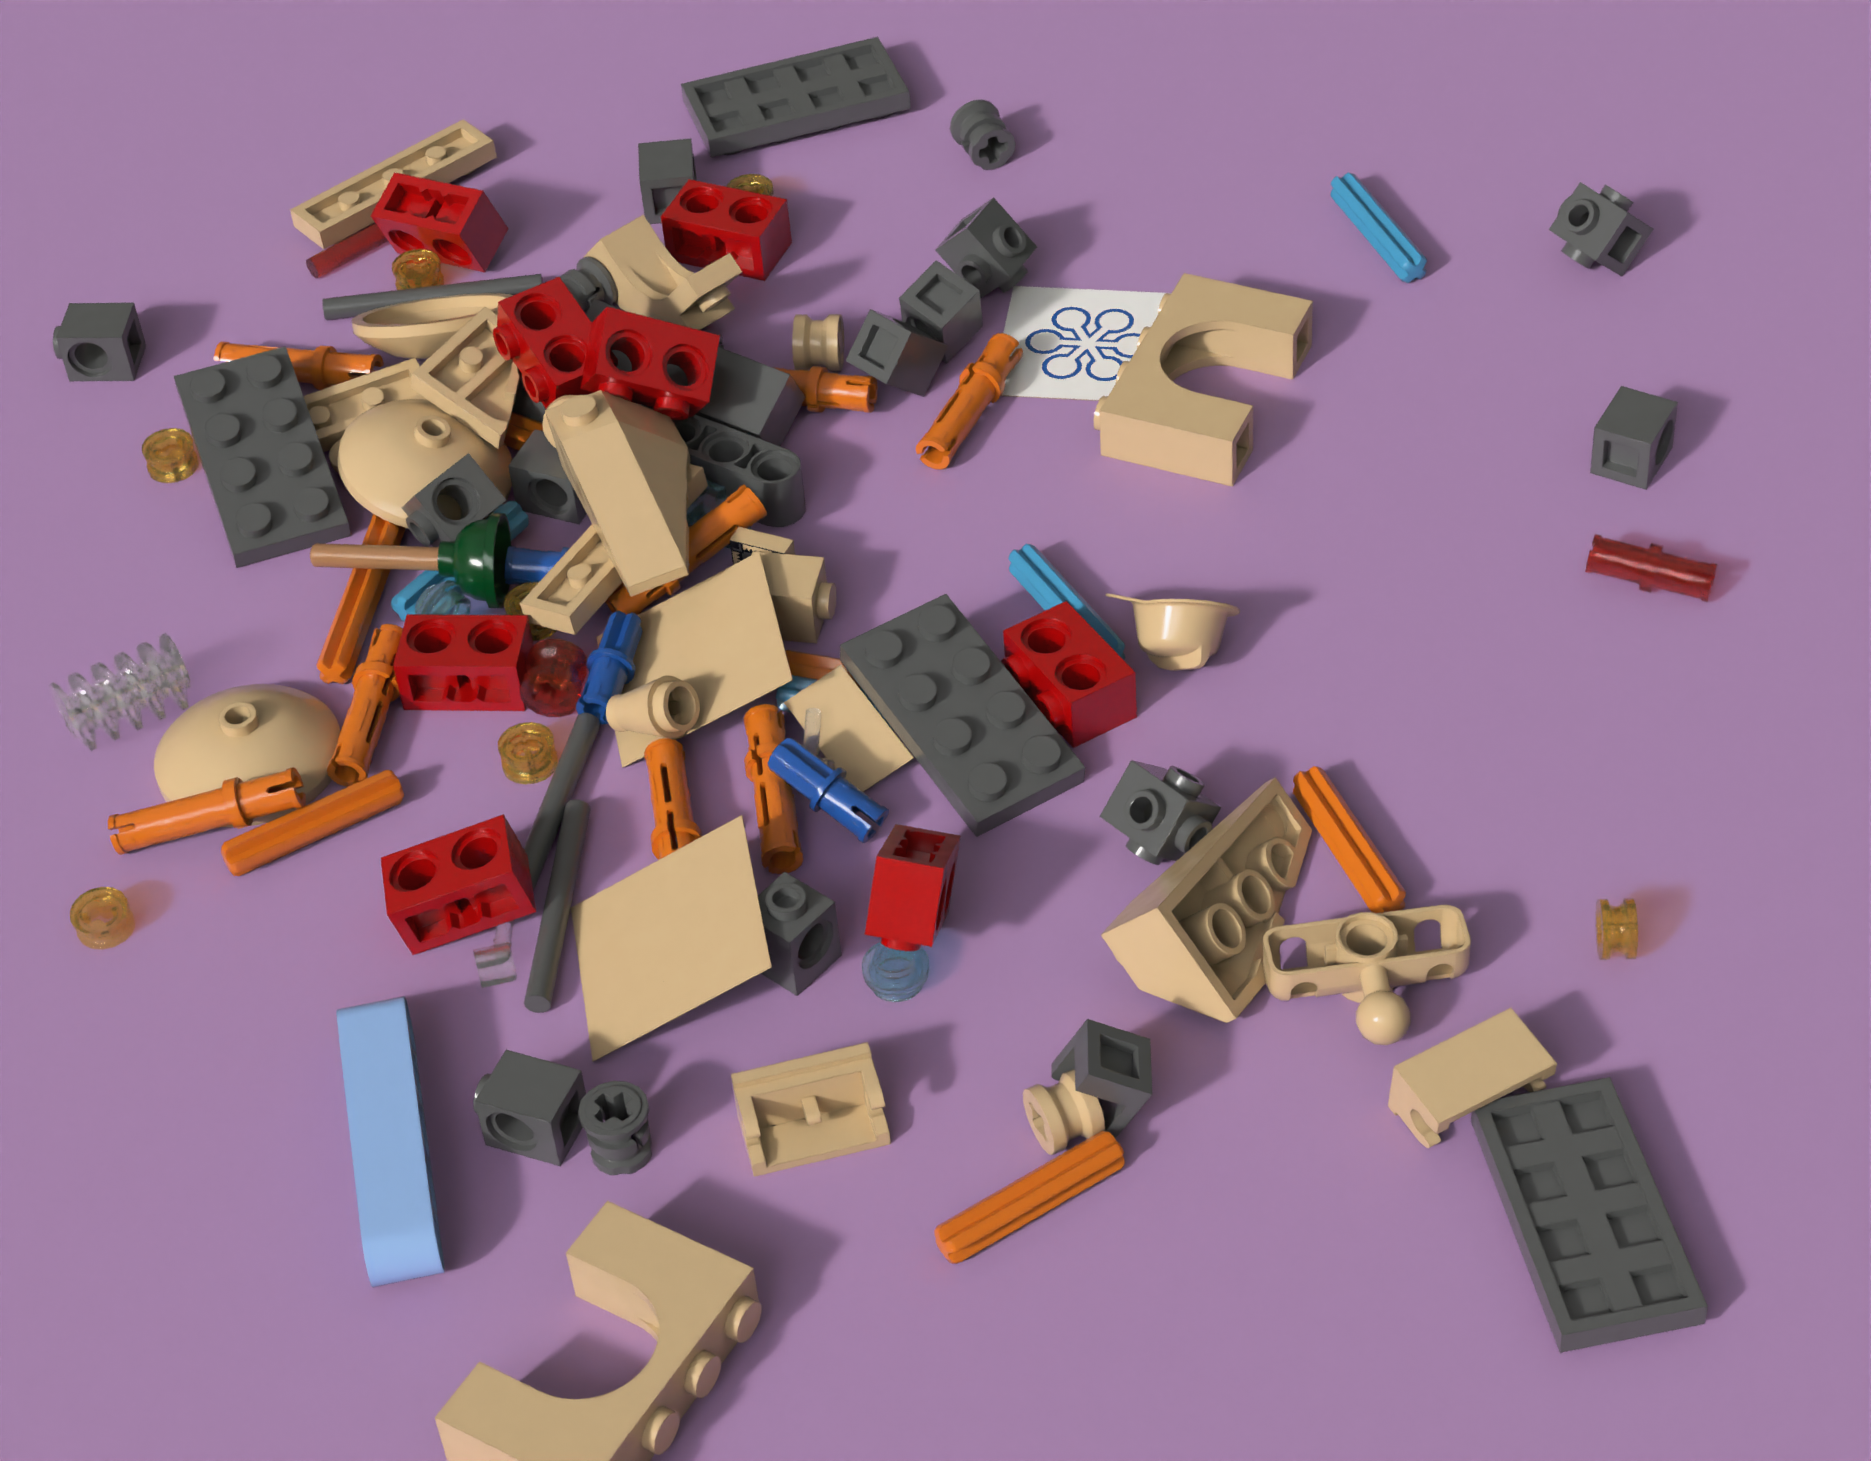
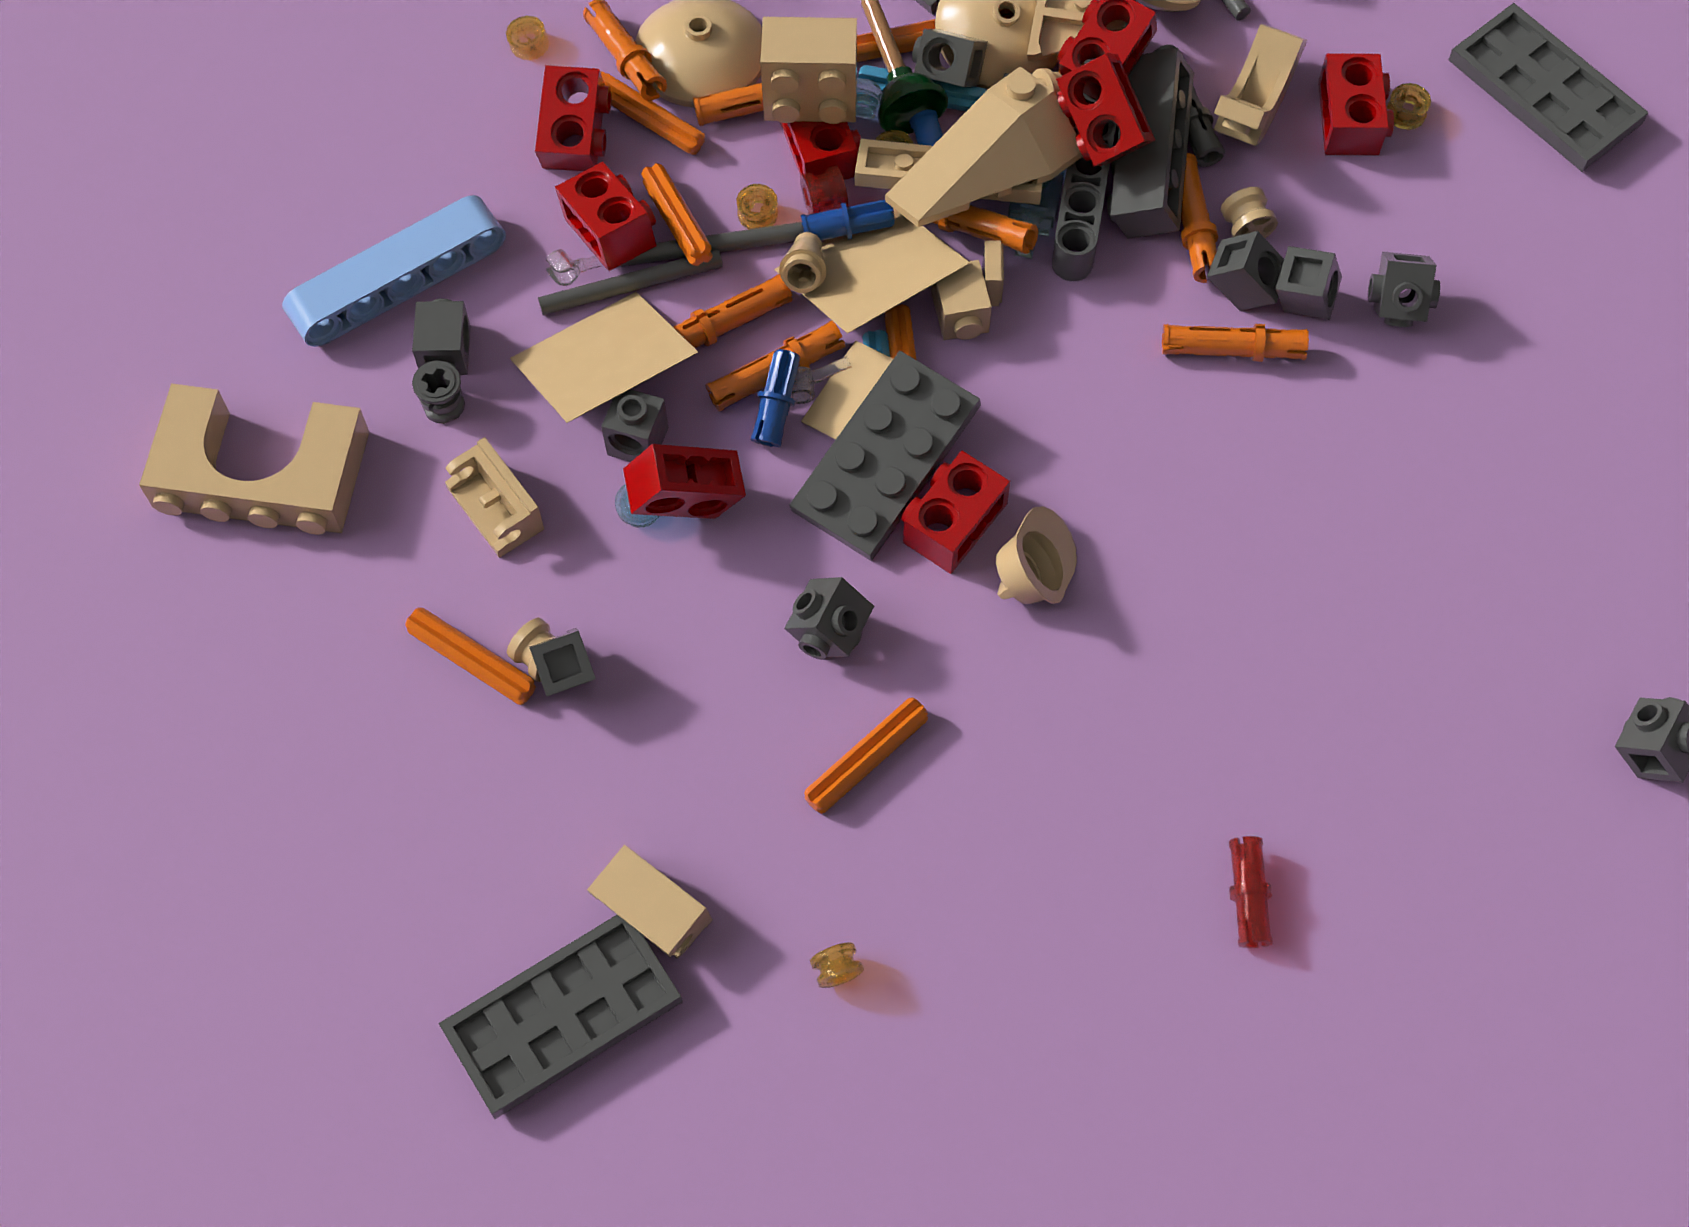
camera: 65 degrees right, 20 degrees up
(276, 894) = (563, 119): none -> red brick
(415, 592) = (809, 69): none -> tan brick
(524, 813) = (677, 214): none -> orange axle
(590, 283) = (1231, 39): dark grey bush -> none
(663, 173) = (1397, 37): dark grey brick -> none
(982, 134) = (1563, 234): dark grey bush -> none
(1051, 588) = (1036, 486): dark azure axle -> none
(1074, 339) = (1356, 403): white sticker -> none
(1200, 326) = (1390, 468): tan arch -> none
(1205, 918) = (753, 685): tan wedge -> none
(1366, 960) = (754, 824): tan piece -> none
(1378, 227) = (1597, 565): dark azure axle -> none
(1633, 437) = (1404, 837): dark grey brick -> none

